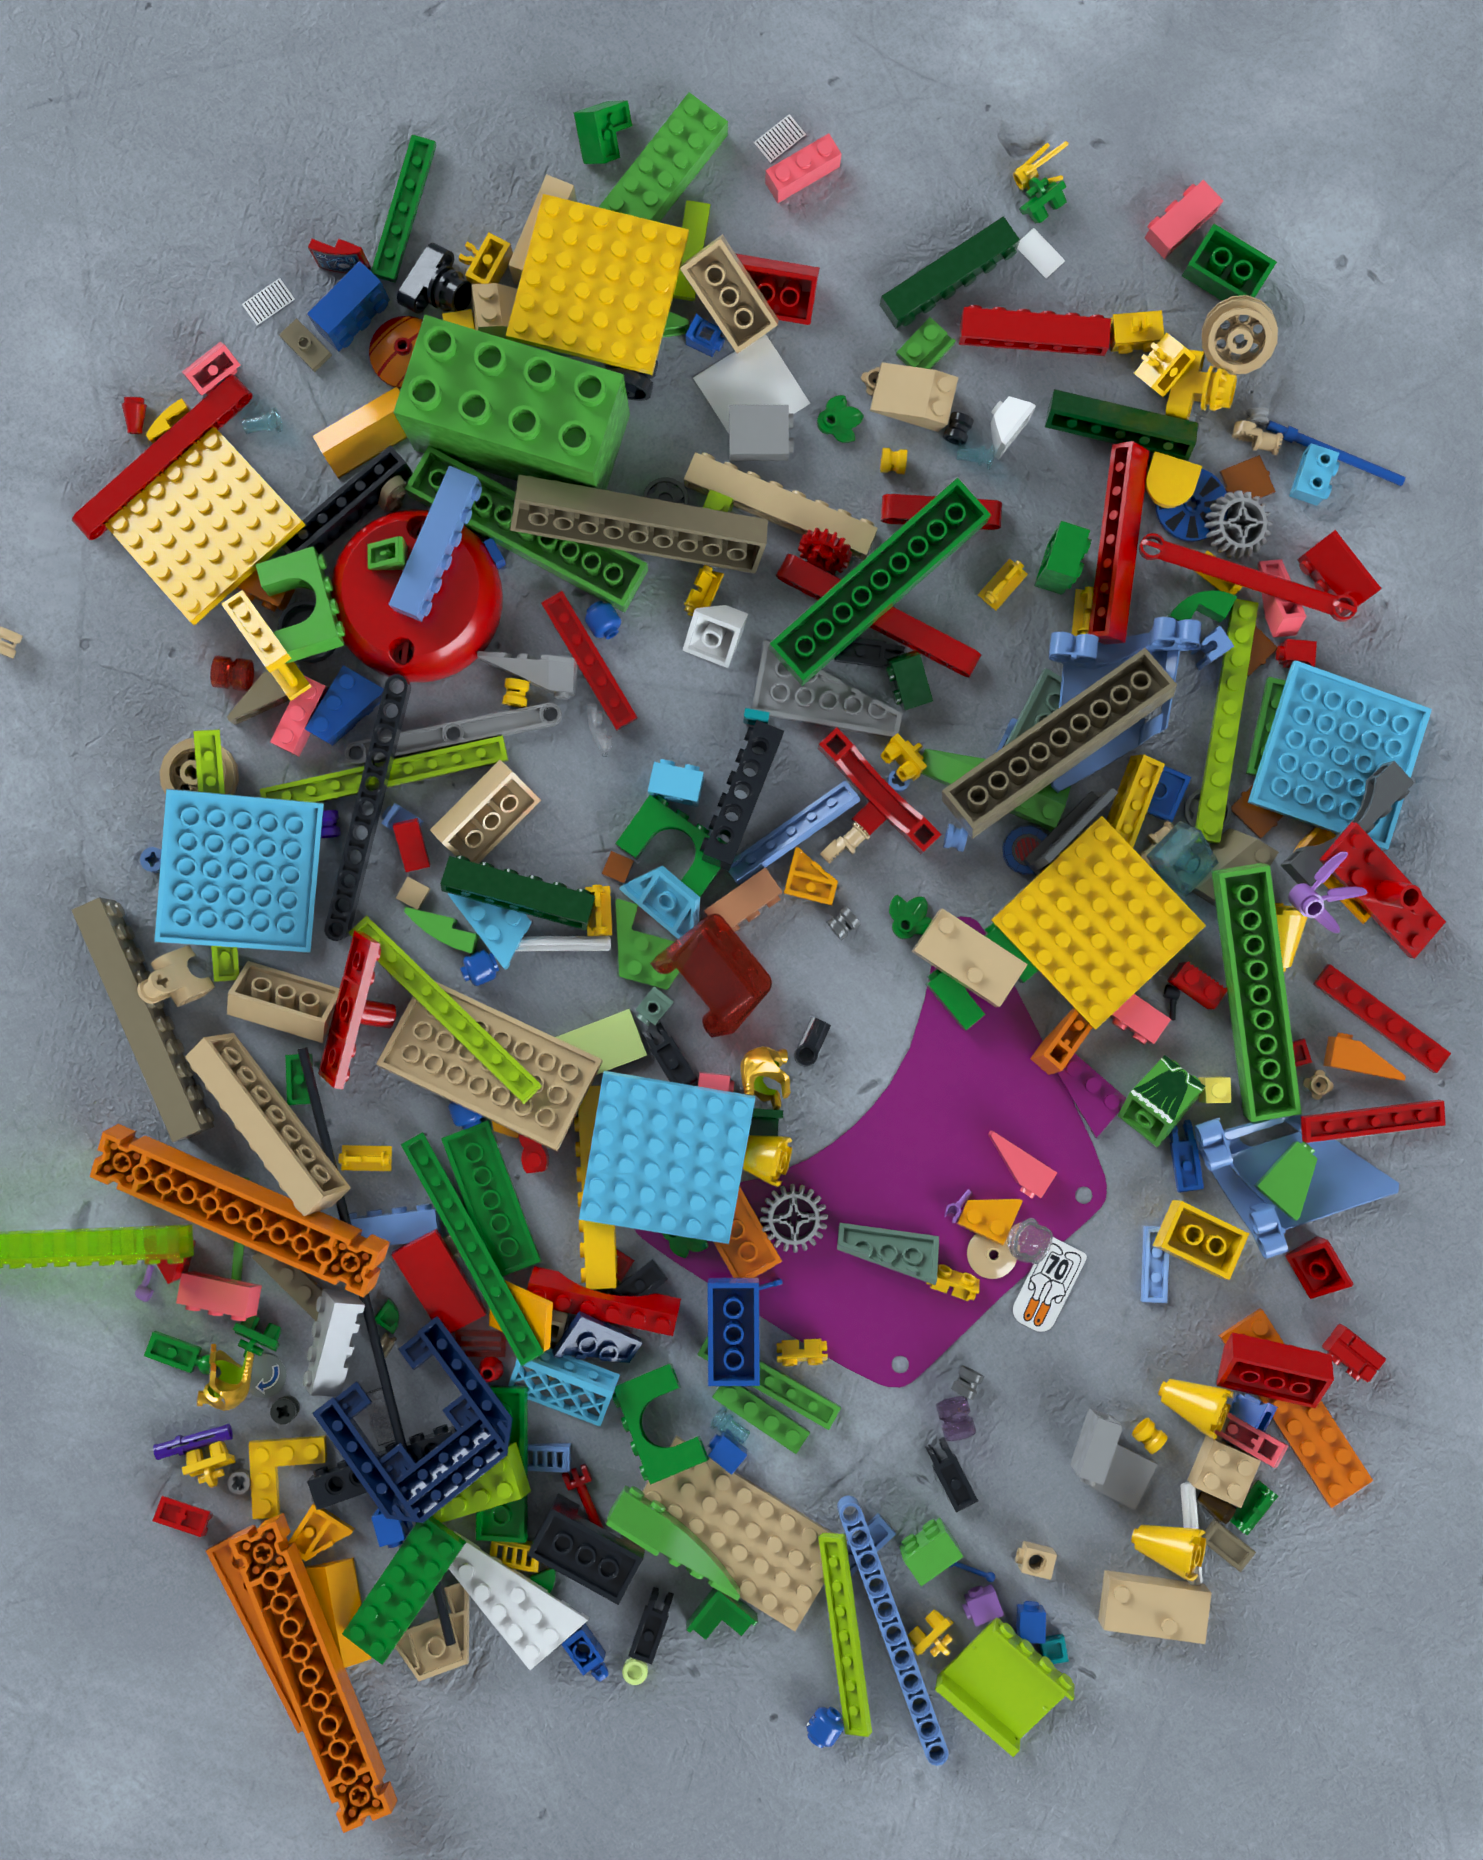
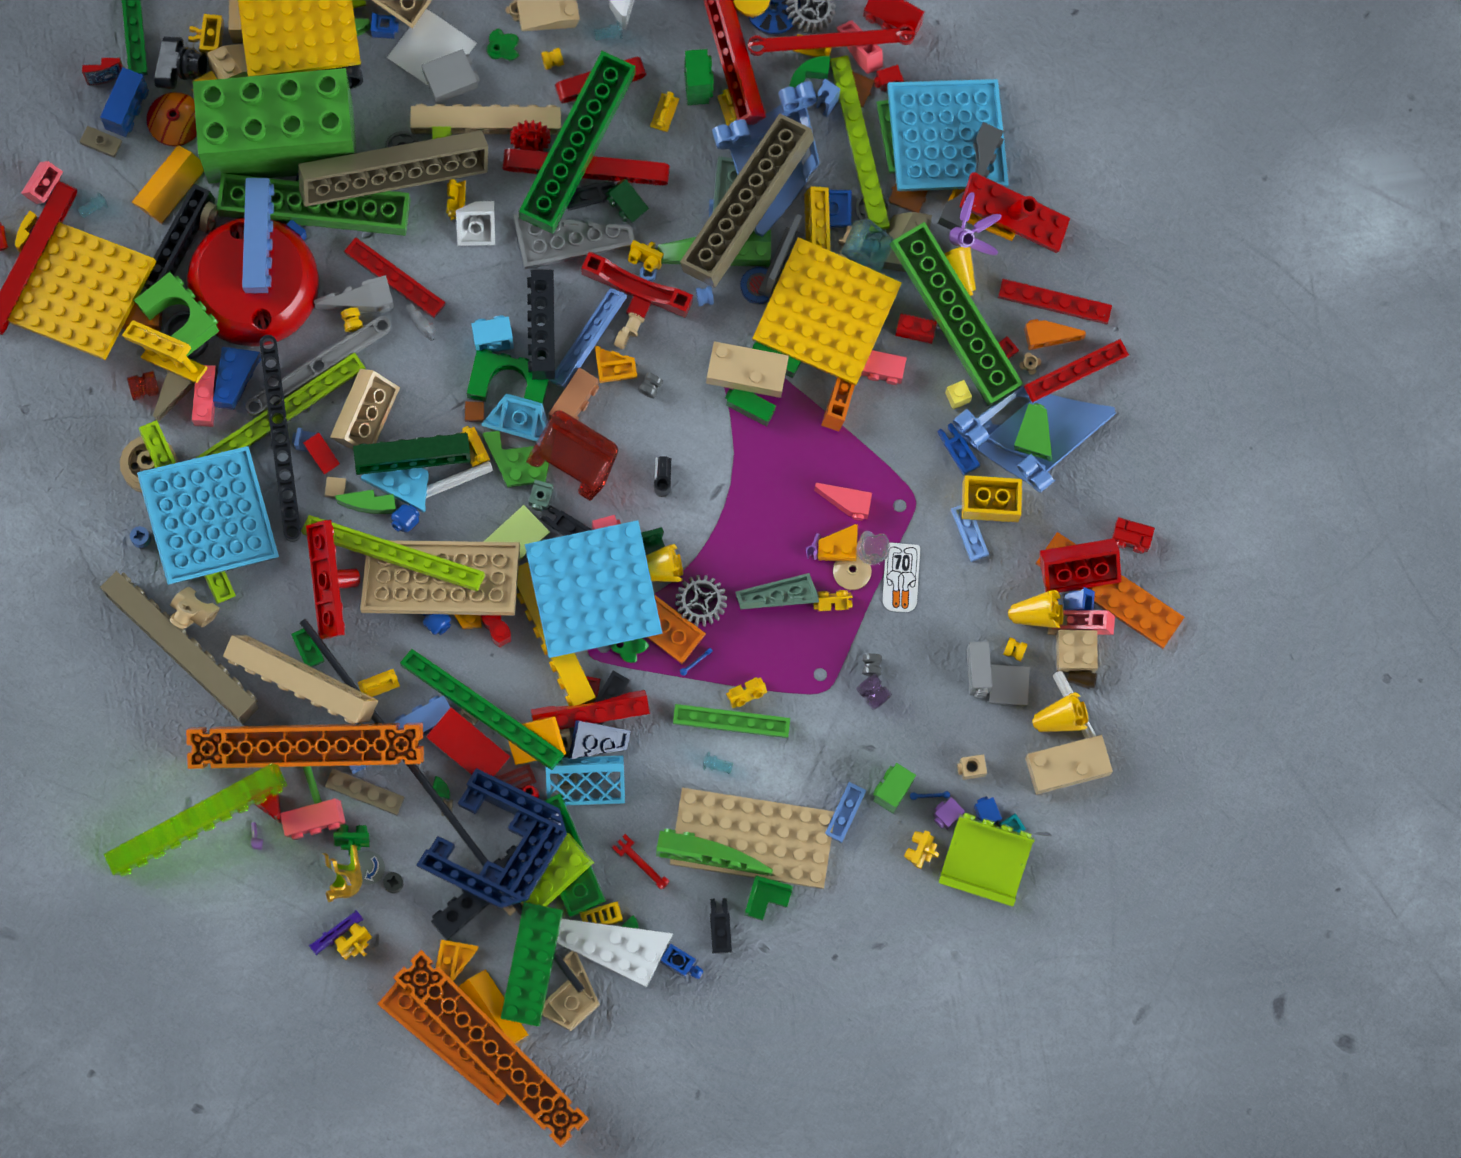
camera: 25 degrees left, 10 degrees down
(177, 1353) = (301, 875): green plate -> none
(182, 1516) = (351, 986): red hinge -> none
(232, 1479) = (387, 946): light grey bush -> none
(264, 1462) = (395, 920): yellow plate -> none
(268, 301) = (61, 122): white sticker -> none
(283, 1001) = (274, 598): tan slope -> none
(329, 822) = (259, 465): dark purple wheel -> none
(332, 1342) = (408, 815): light grey wedge -> none
(388, 554) = (226, 255): bright green slope -> none
(390, 1531) = (504, 925): blue brick -> none
(491, 1197) = (478, 671): green plate -> none
(565, 1466) = (599, 830): medium blue slope -> none
(585, 1551) = (650, 881): black piece -> none
(603, 620) = (393, 246): blue head -> none
(633, 1399) = (675, 803): green arch -> none
(634, 1671) = (722, 964): yellowish green tile -> none
(726, 1452) = (722, 781): blue brick -> none
(733, 1332) = (691, 690): blue brick -> none
(752, 716) = (525, 269): teal tile -> none
(760, 1063) = (633, 502): pearl gold piece -> none
(762, 1416) = (736, 748): bright green plate -> none
(825, 1727) = (873, 944): blue head -> none
(845, 1634) = (859, 871): lime plate -> none
(897, 1641) = (901, 858): medium blue beam -> none
(911, 913) = (694, 361): green plate -> none
(952, 1478) = (889, 735): black hinge -> none
(958, 428) = (588, 19): black wheel -> none
(1092, 1094) = (874, 432): magenta wing -> none
(1160, 1100) = (923, 416): slope -> none
(1172, 993) = (902, 342): black hand -> none
(1228, 1545) = (1103, 704): dark tan tile -> none
(1254, 1507) = (1109, 670): green hinge -> none
(1318, 1268) = (1083, 486): red slope -> none

